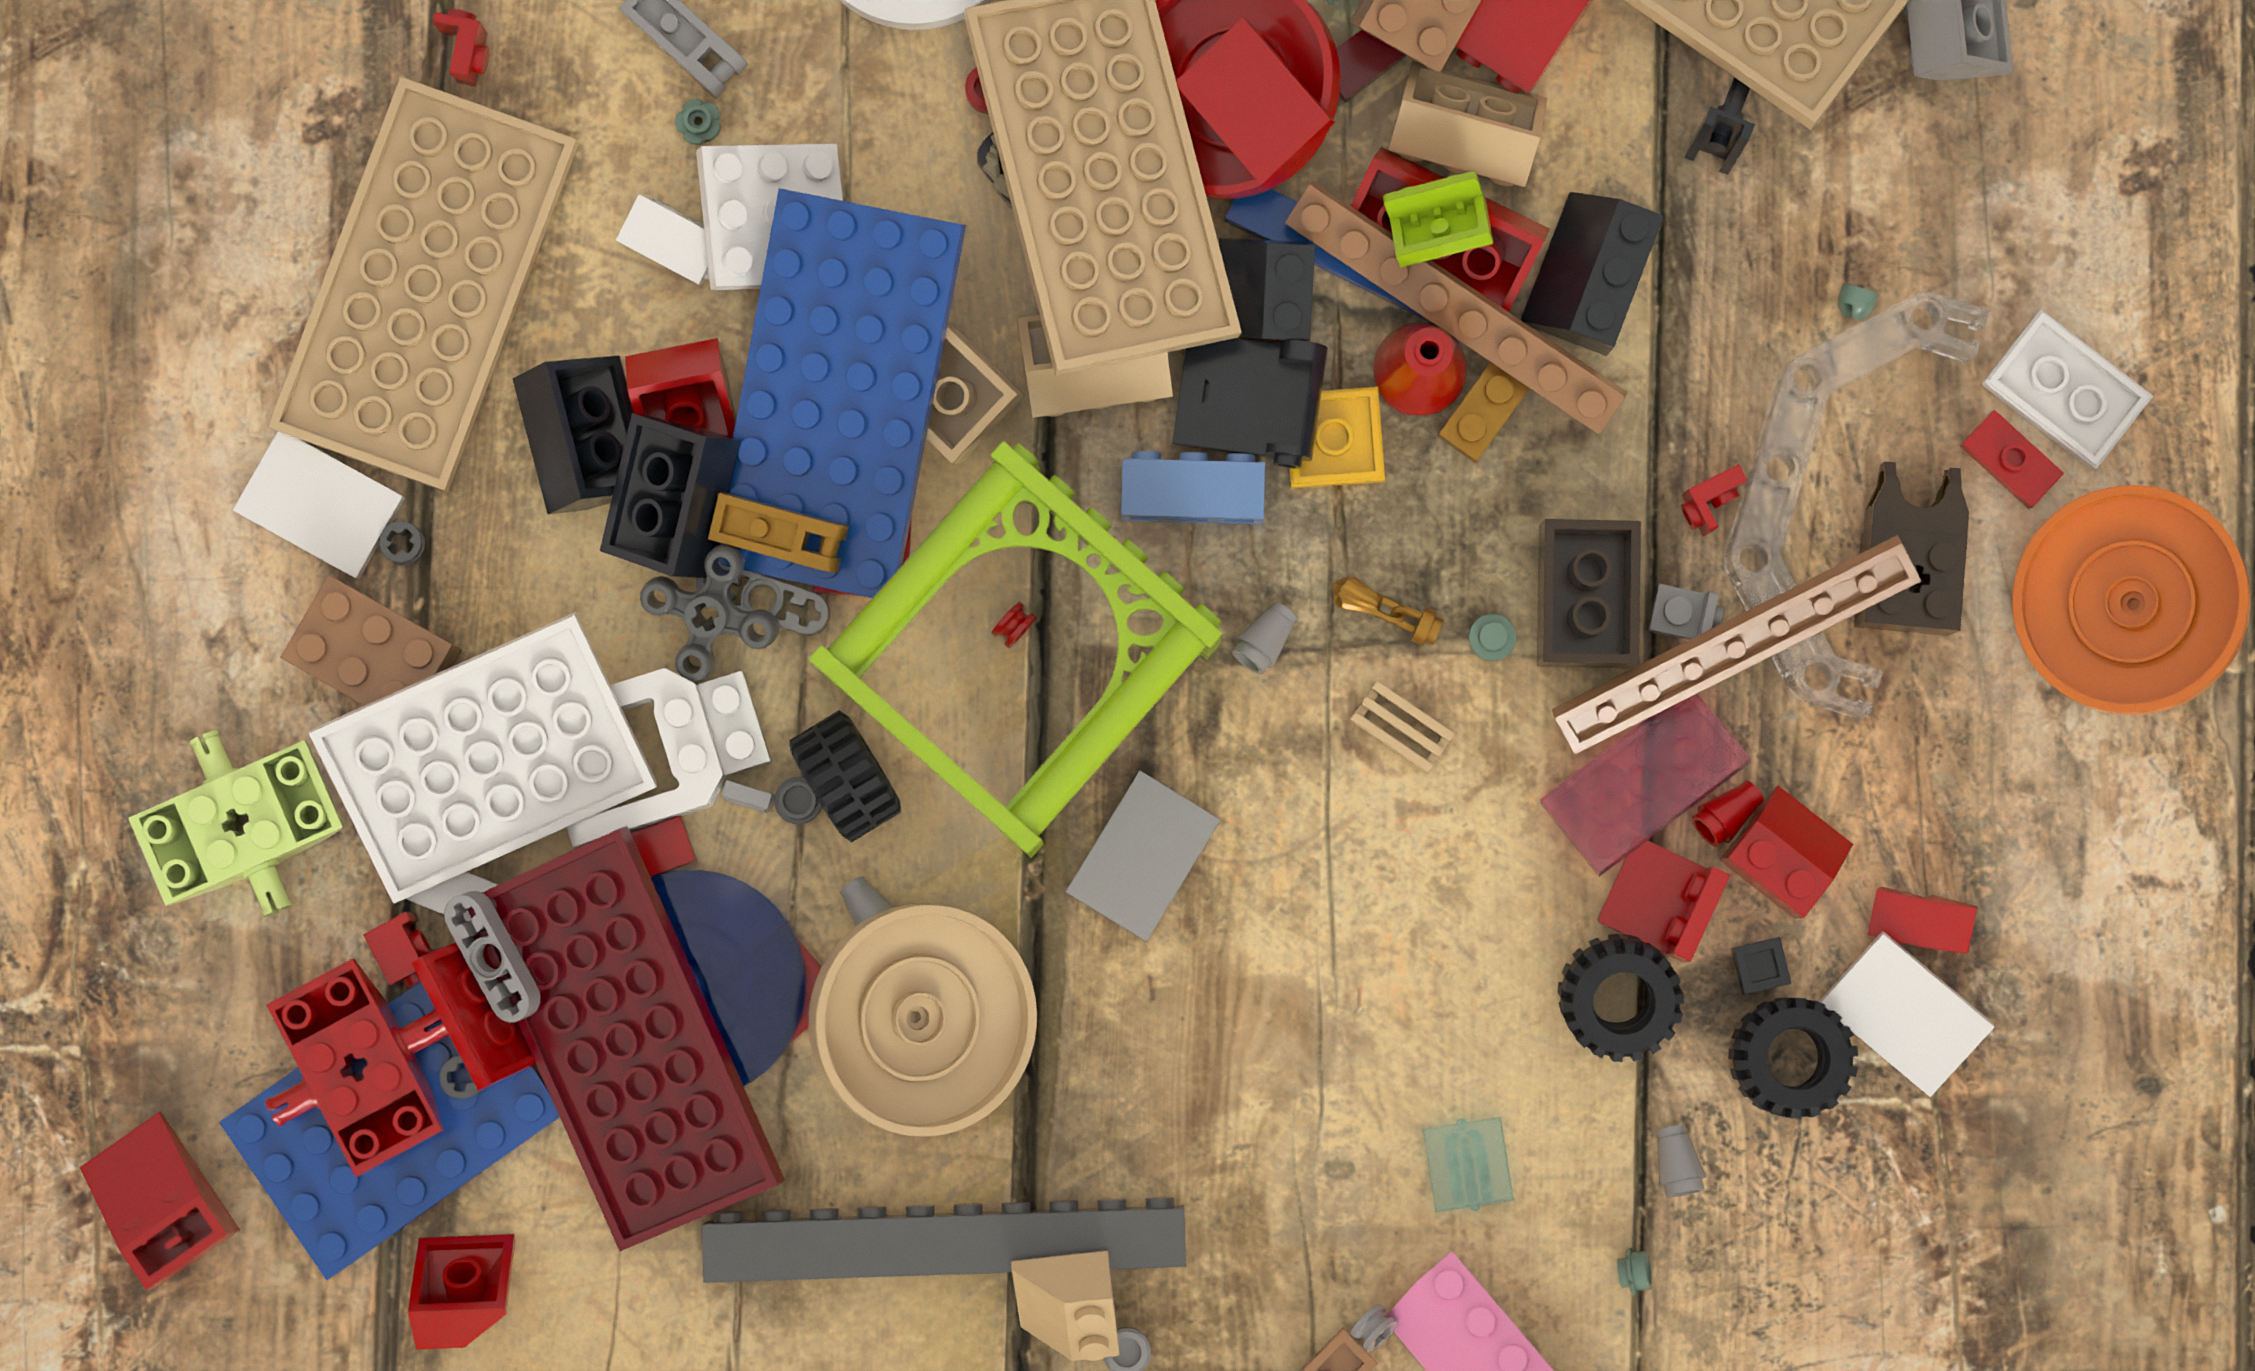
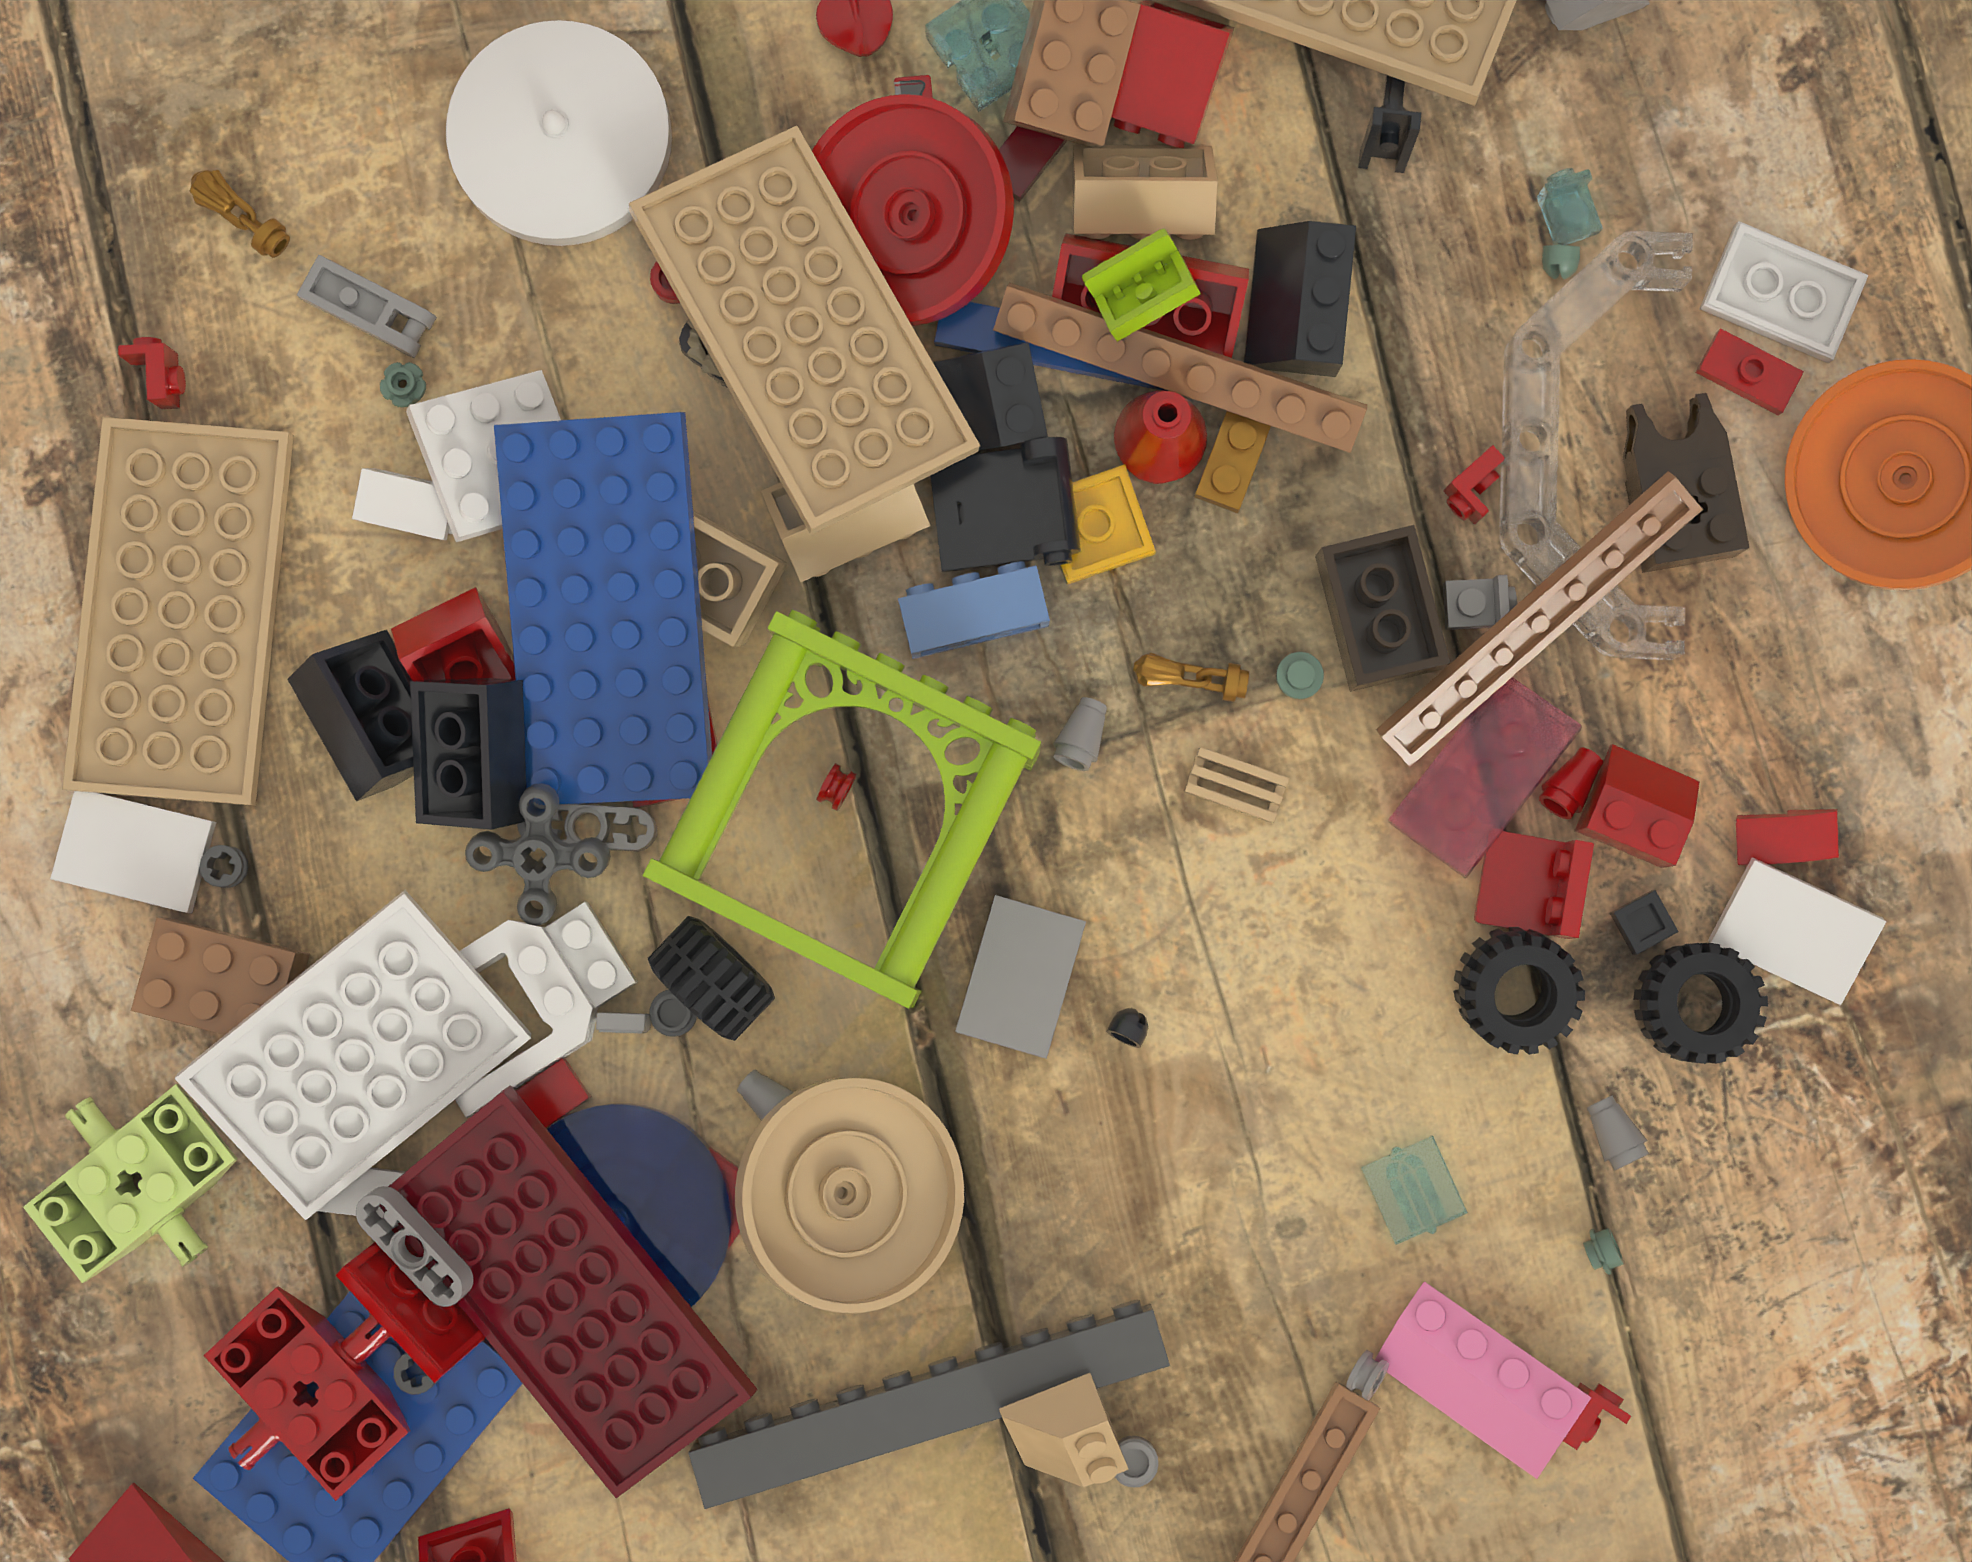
camera: 10 degrees left, 0 degrees up
(397, 946) = (320, 1259): red brick -> none
(776, 532) = (581, 759): pearl gold plate -> none
(1234, 933) = (1129, 1027): none -> black hinge
(1254, 102) = (933, 220): red tile -> none
(1879, 251) = (1569, 207): none -> clear light blue bracket

